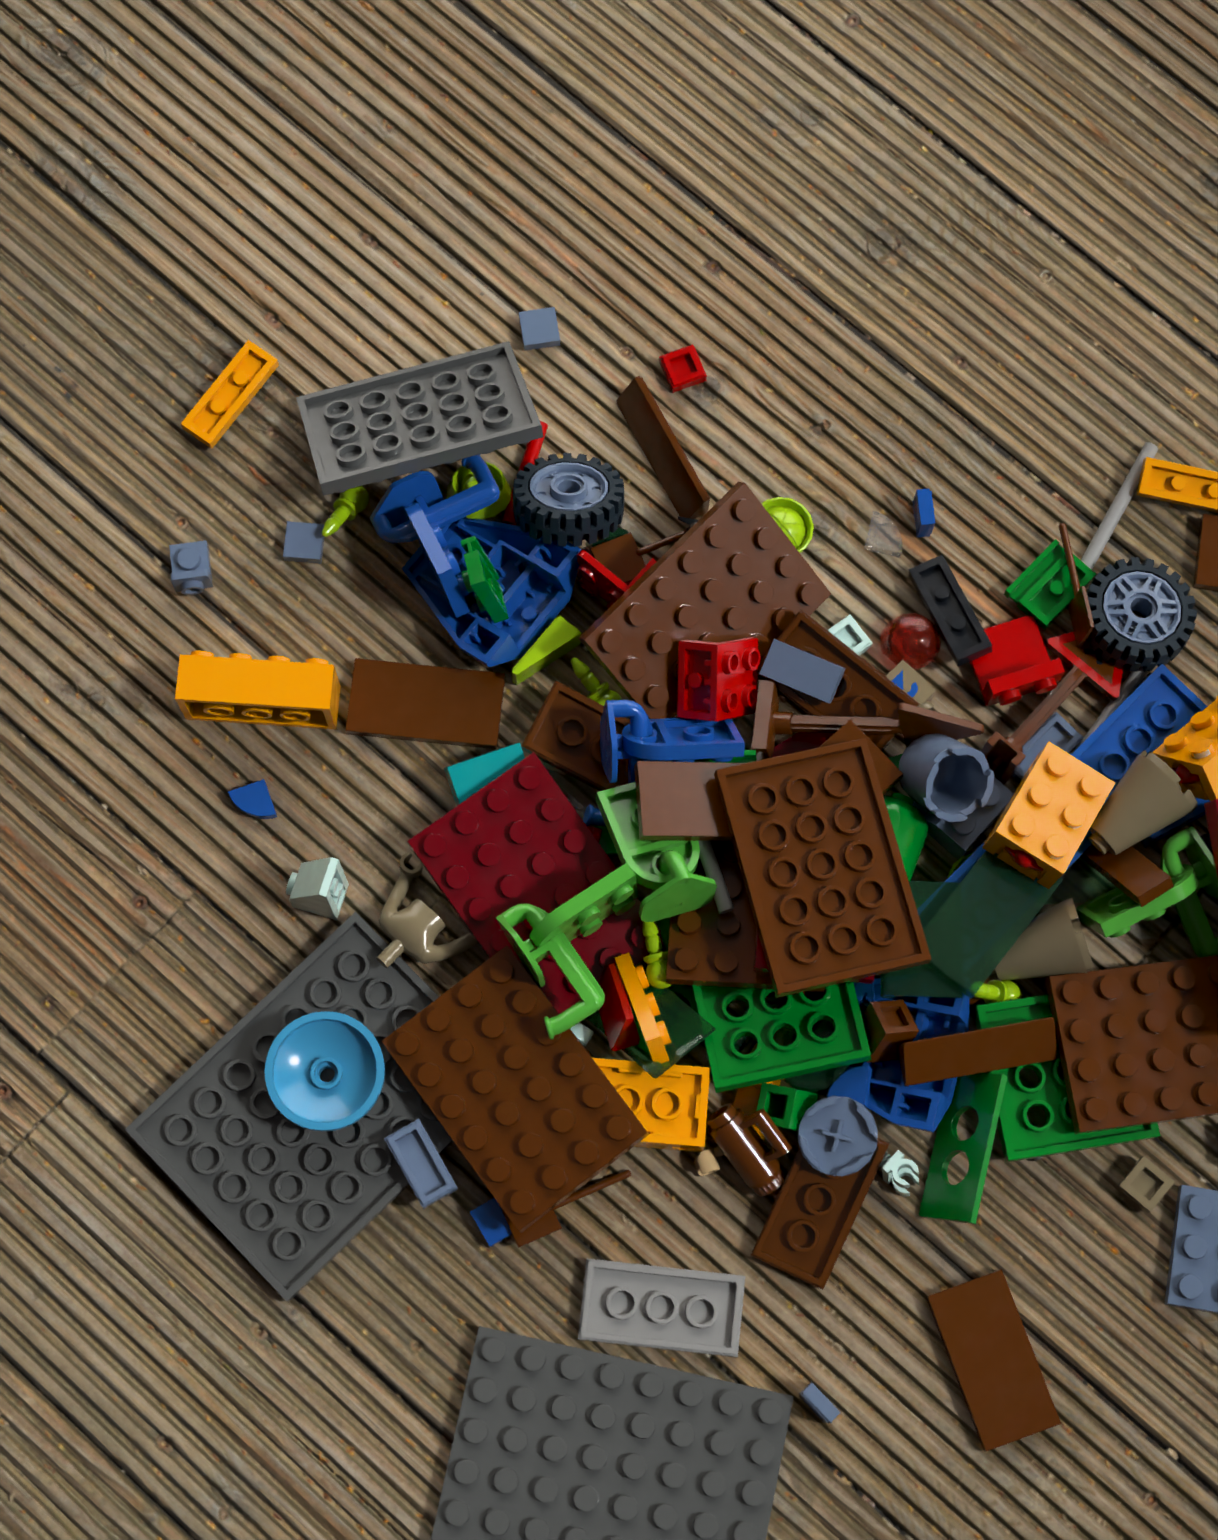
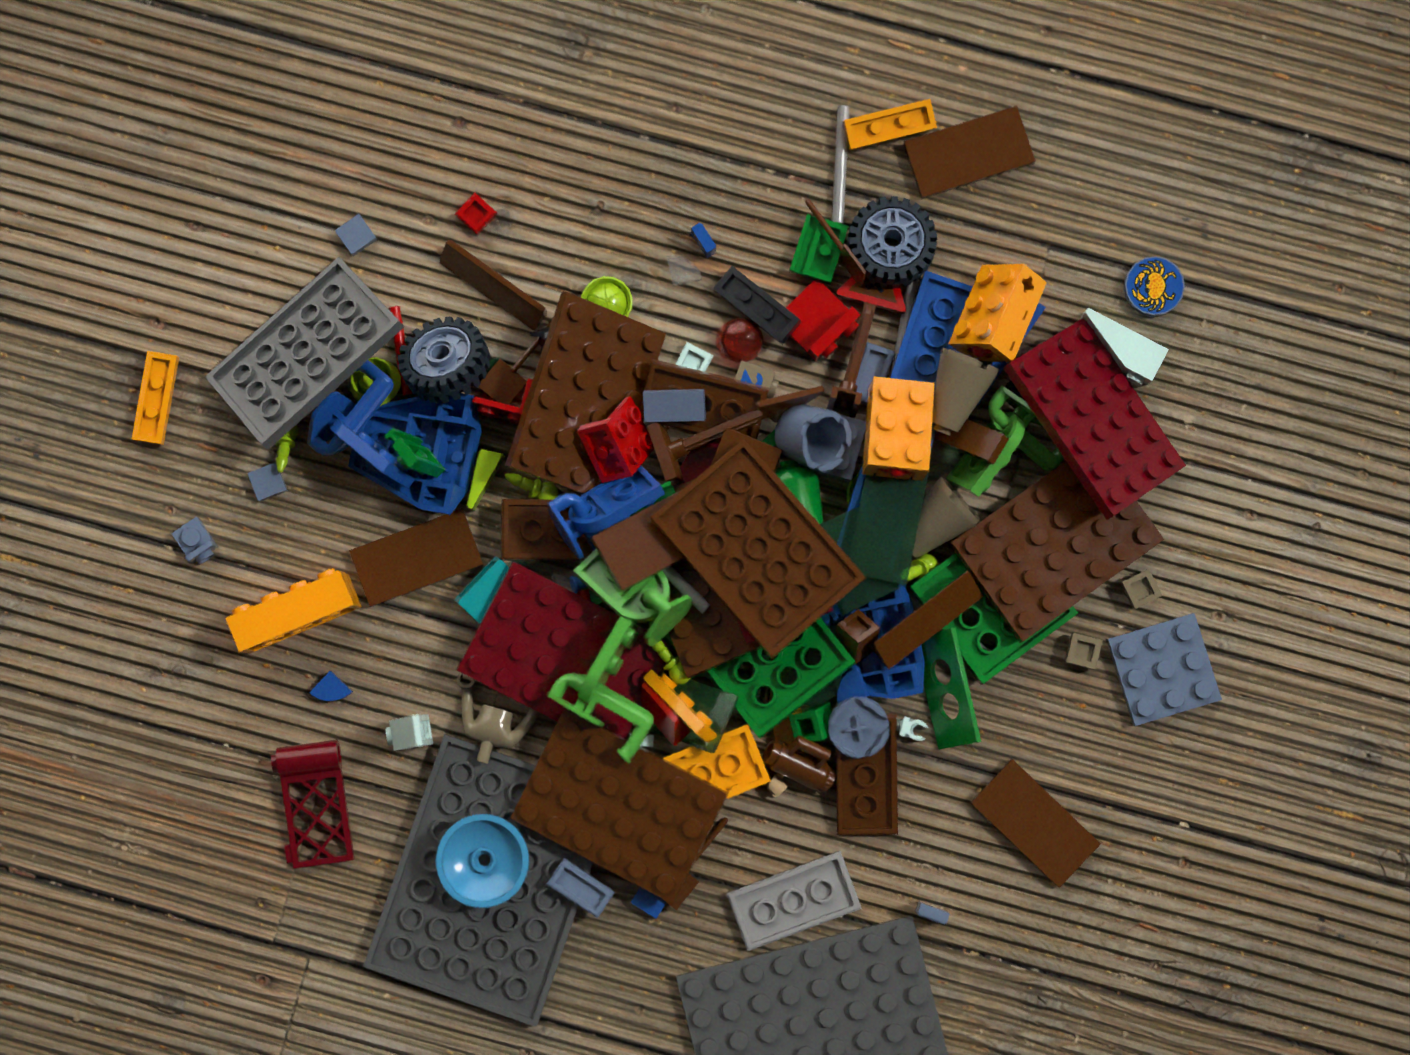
camera: 25 degrees left, 10 degrees up
(178, 867) = (301, 765): none -> dark red piece

